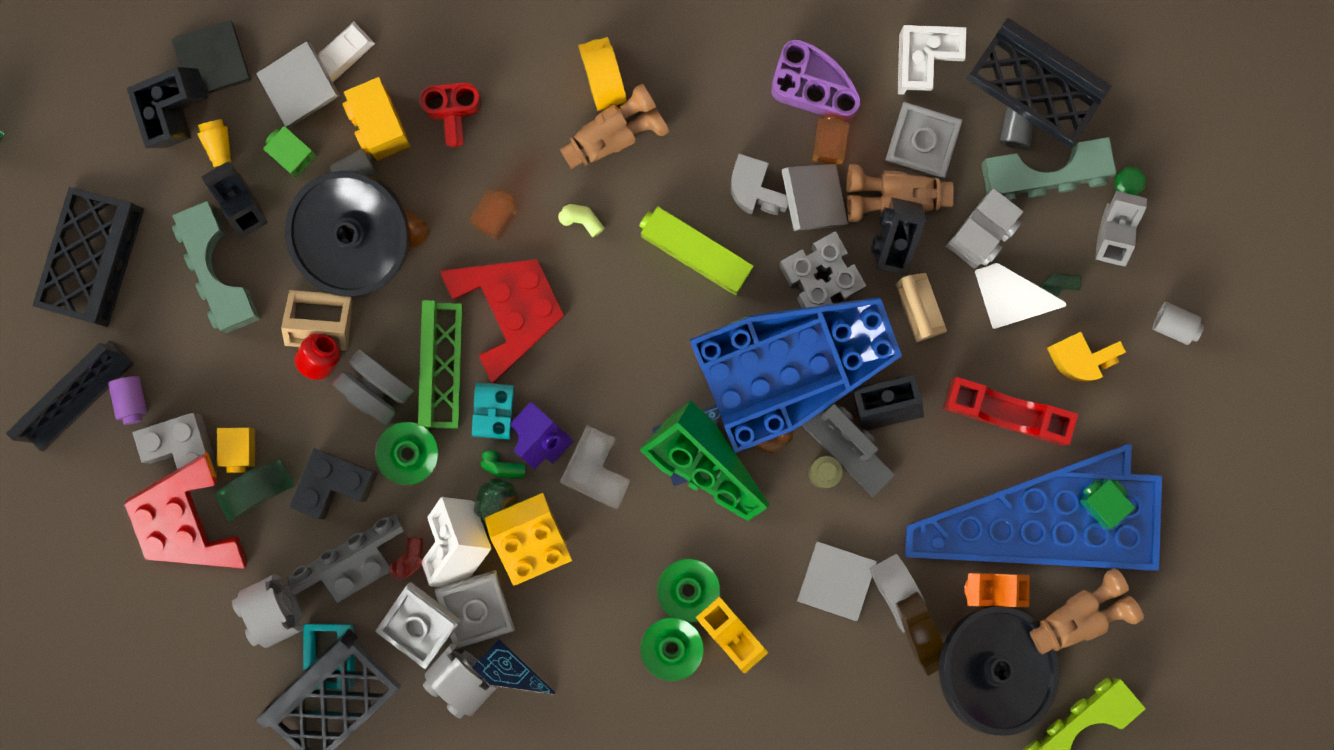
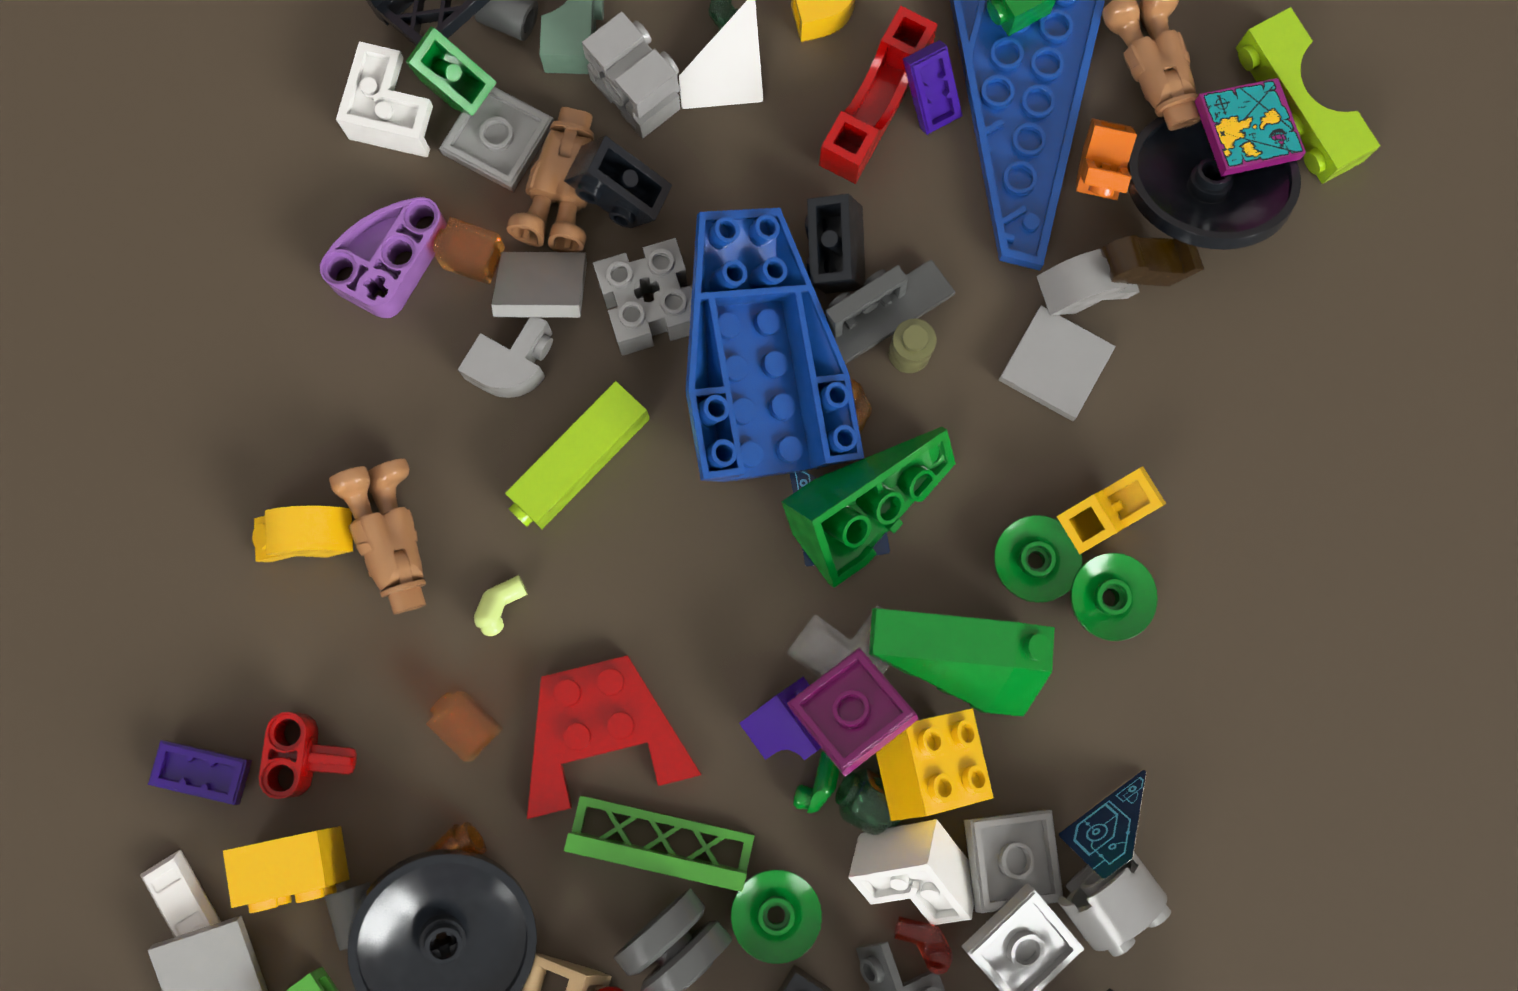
camera: 80 degrees left, 5 degrees down
(428, 44) = (199, 772): none -> dark purple plate
(493, 410) = (740, 780): teal piece -> none
(550, 474) = (852, 711): none -> magenta tile
(605, 555) = (978, 660): none -> green wedge
(920, 306) = (718, 183): tan tile -> none
(955, 99) = (450, 73): none -> slope
(1023, 451) = (933, 87): none -> dark purple plate
(1041, 690) = (1250, 127): none -> tile

